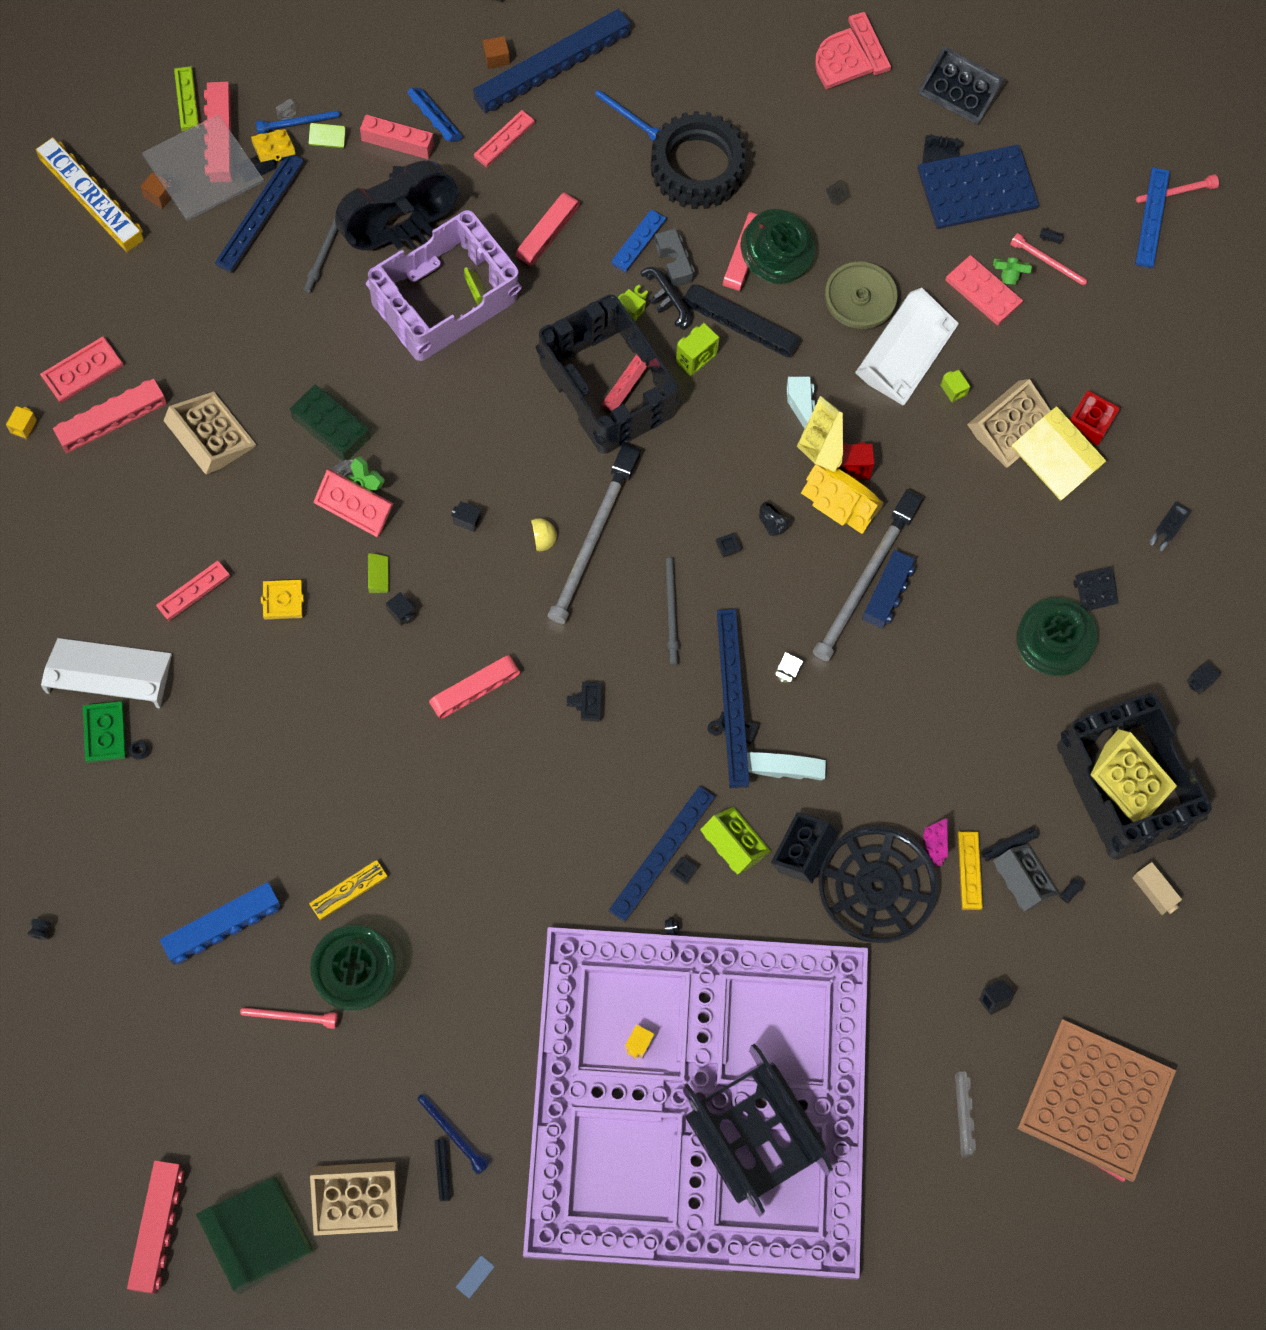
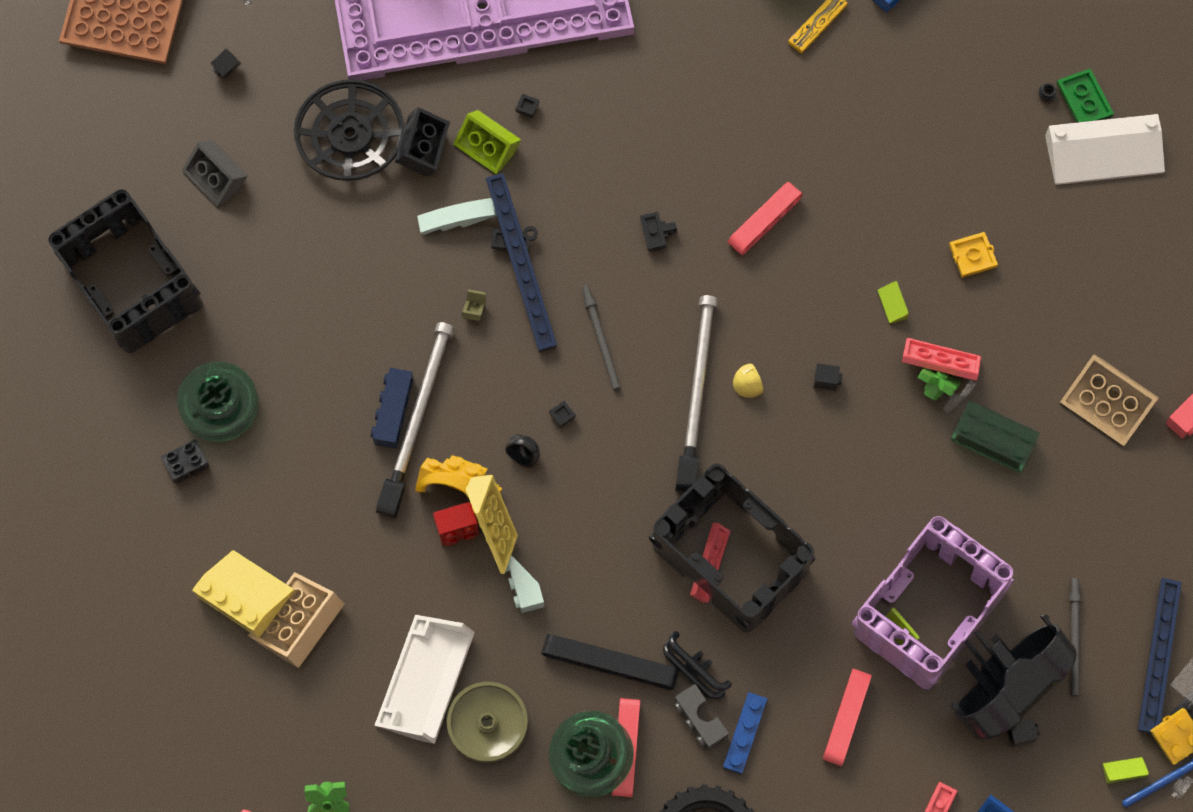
camera: 170 degrees right, 0 degrees up
(193, 591) = (1059, 242): coral plate -> none
(397, 136) = (1048, 785): coral brick -> none
(401, 609) = (858, 271): black brick -> none
(634, 302) = (731, 651): lime brick -> none
(661, 854) = (550, 118): dark blue plate -> none
(671, 926) = (525, 57): black plate -> none
(697, 349) = (647, 607): lime brick -> none
(936, 842) = (302, 179): dark pink hinge -> none
(955, 385) = (365, 645): lime brick -> none
(970, 871) = (267, 170): yellow tile -> none
(984, 290) = (363, 777): coral plate -> none
(1014, 841) = (240, 194): black pin -> none
(1071, 890) = (168, 176): black pin -> none
(1094, 417) = (212, 641): red brick -> none
(1131, 776) = (127, 265): light yellow slope -> none
(1157, 889) = (88, 187): tan brick -> none
(1171, 524) = (116, 548): black hinge -> none
(1203, 678) = (67, 395): black brick -> none

